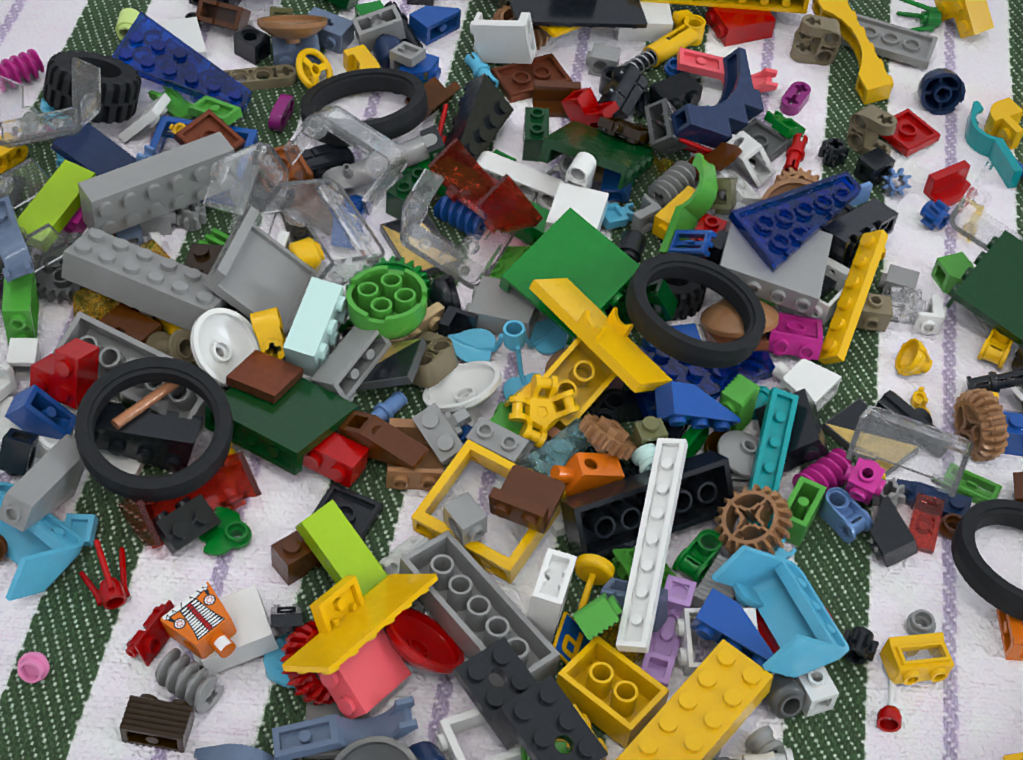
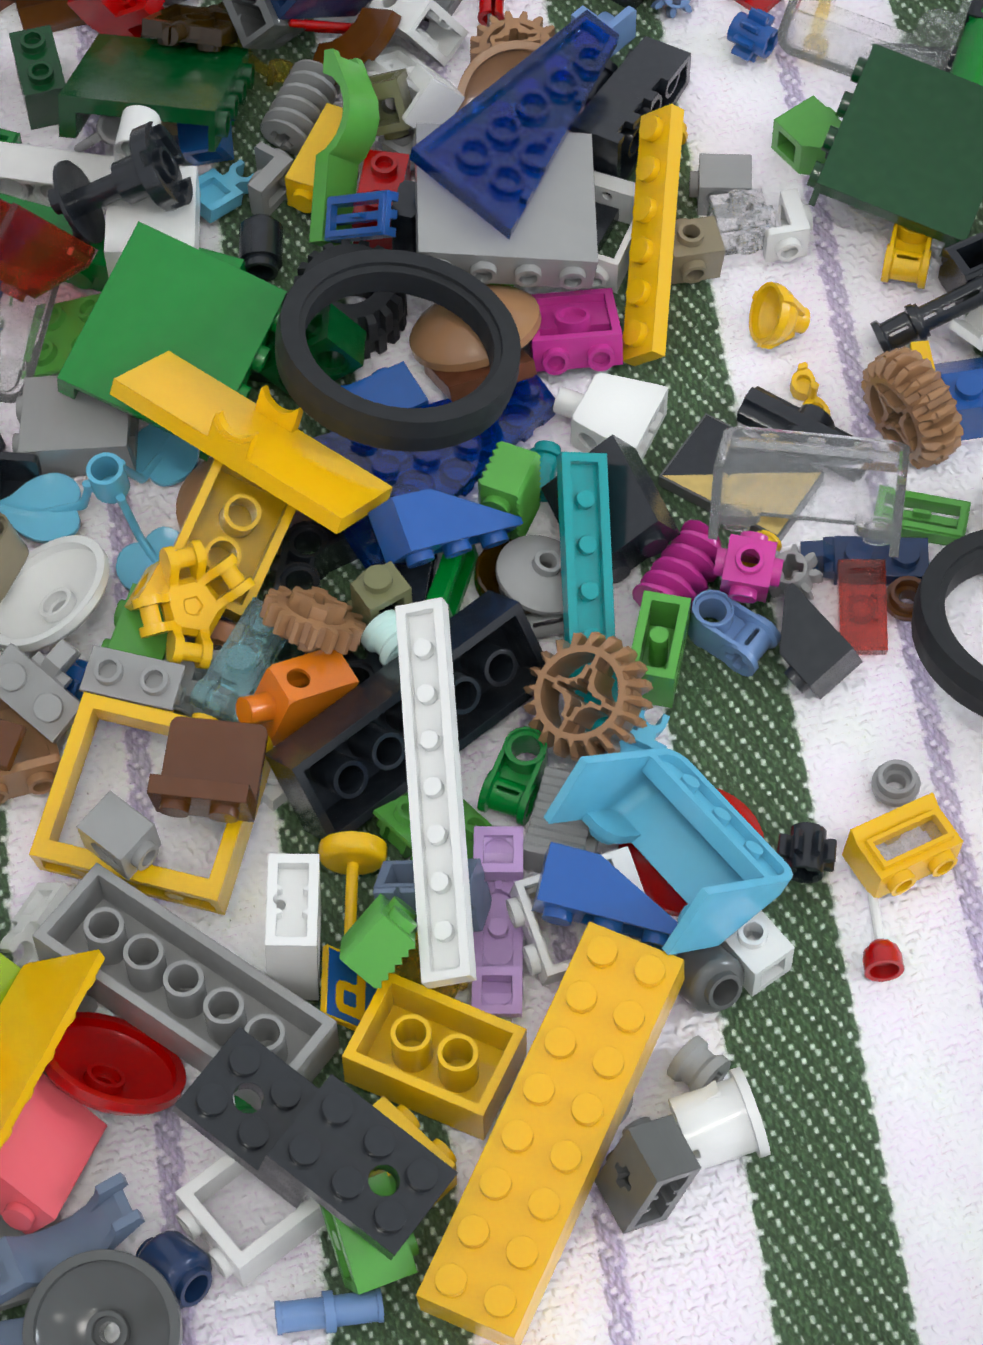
camera: 10 degrees left, 10 degrees up
(580, 186) = (147, 172): none -> black piece
(748, 194) = (435, 100): none -> white panel

